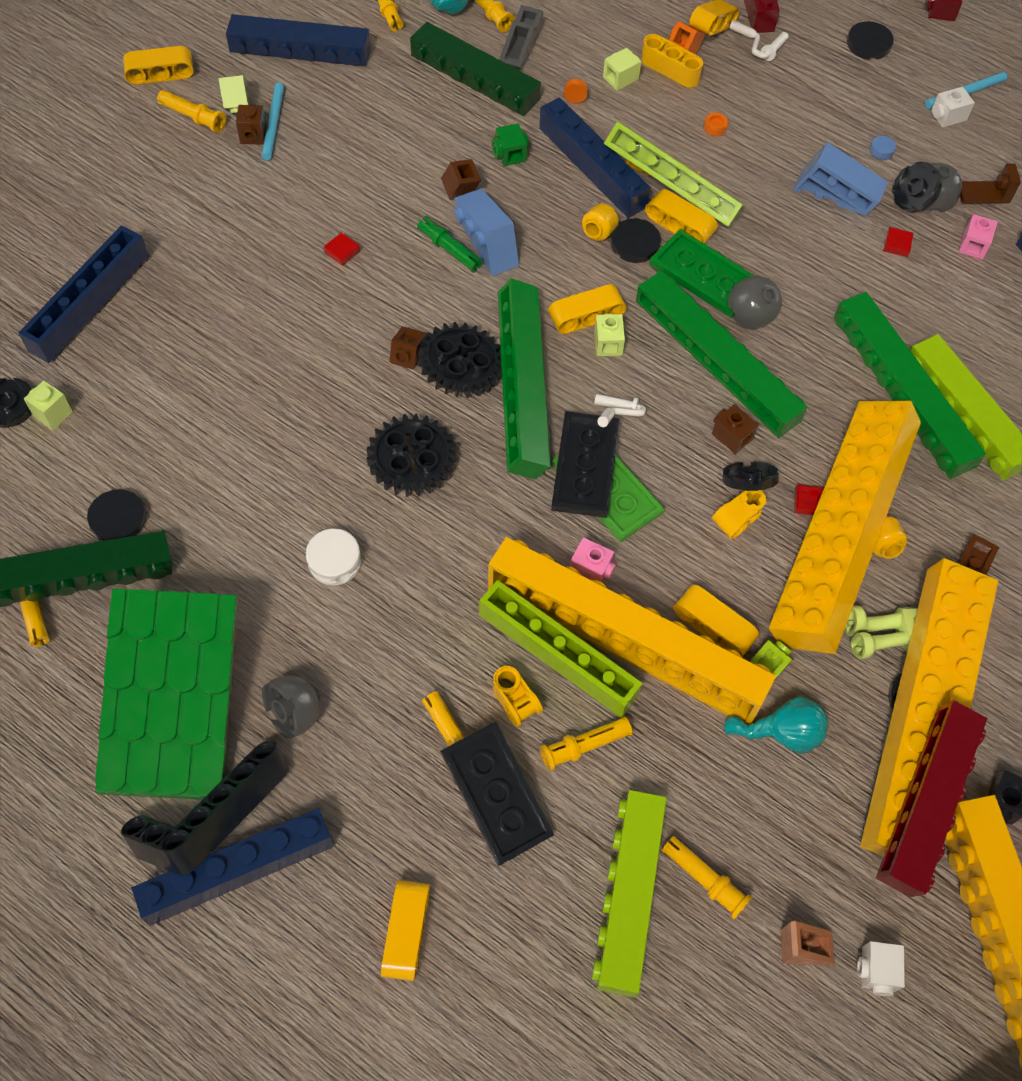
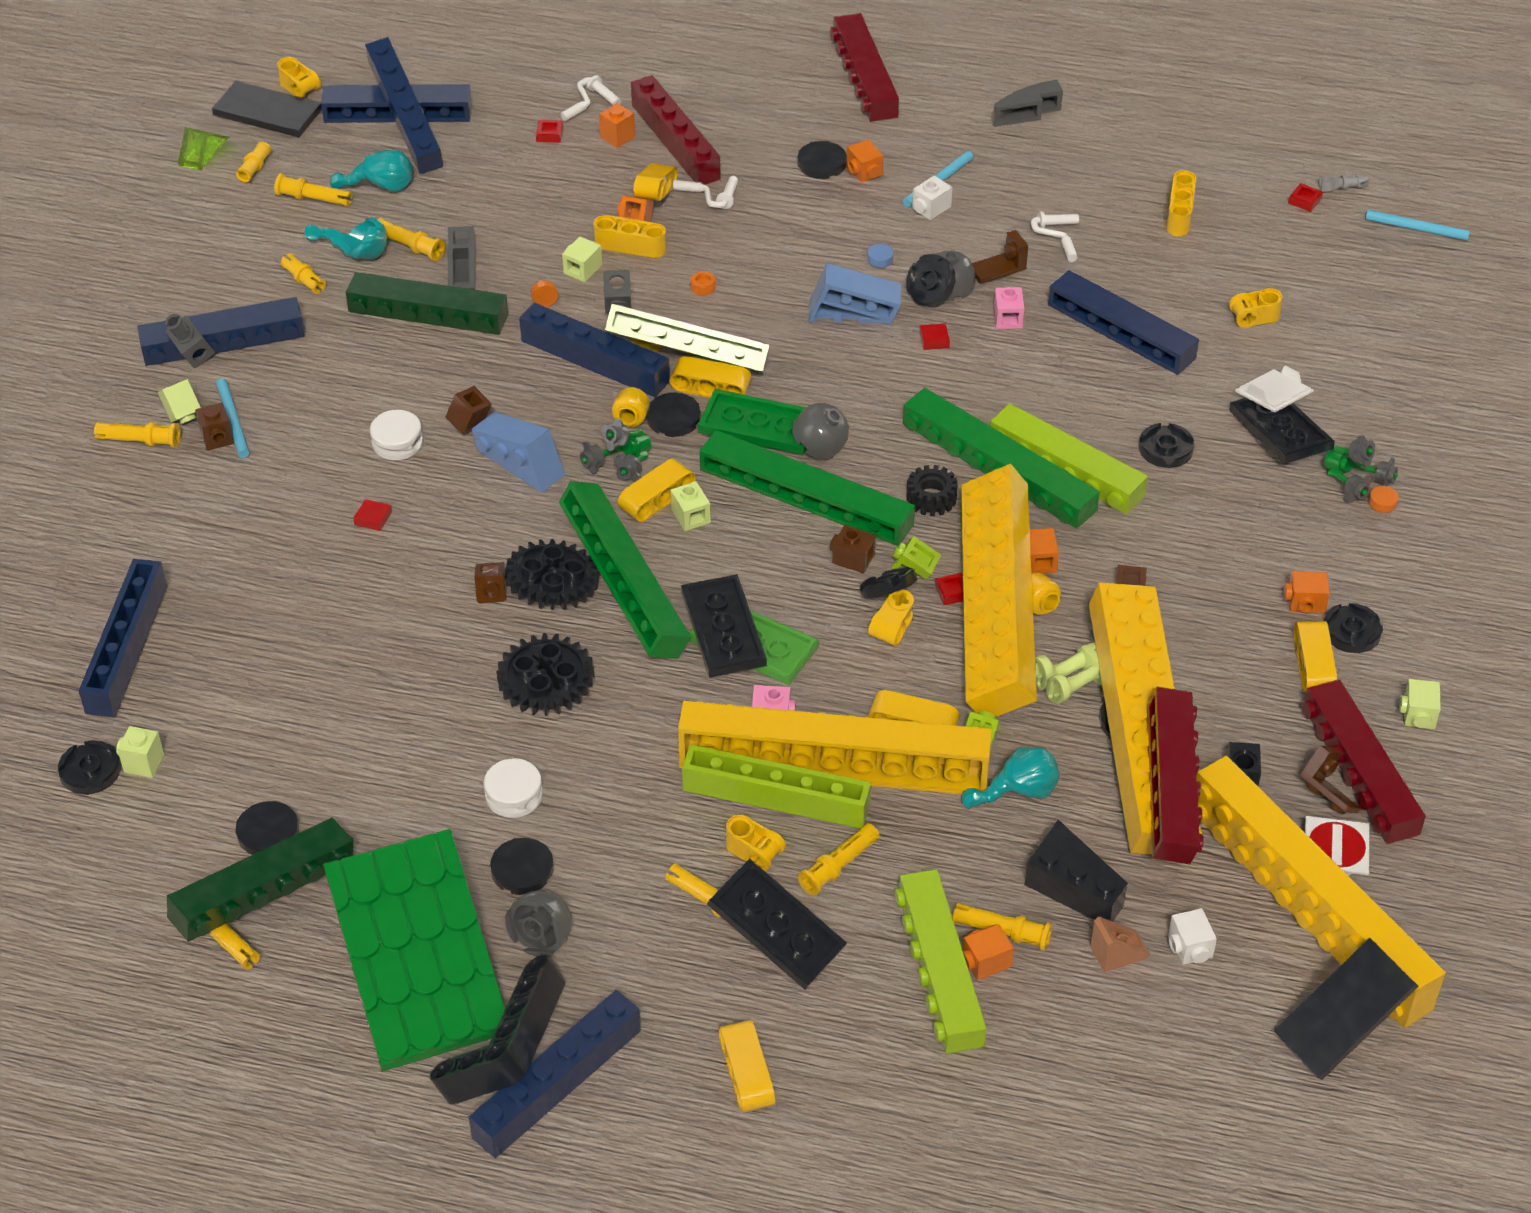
camera: 20 degrees left, 15 degrees down
(158, 65) = (76, 400): yellow beam -> none
(263, 38) = (187, 339): none -> dark grey bracket
(307, 636) = (521, 865): none -> black tile
(394, 181) = (396, 434): none -> white head
(442, 238) = (475, 472): green pin -> none
(510, 144) = (501, 364): green brick -> none
(571, 249) = (619, 438): none -> dark grey plant
(618, 407) = (731, 565): white piece -> none
(635, 116) = (619, 296): none -> dark grey bracket
(677, 900) = (987, 951): none -> orange brick
(787, 457) = (917, 556): none -> lime bracket
(796, 854) = (1075, 875): none -> black wedge
(836, 383) = (932, 479): none -> black tyre
(907, 53) = (864, 161): none -> orange brick
(908, 493) = (1043, 551): none -> orange brick

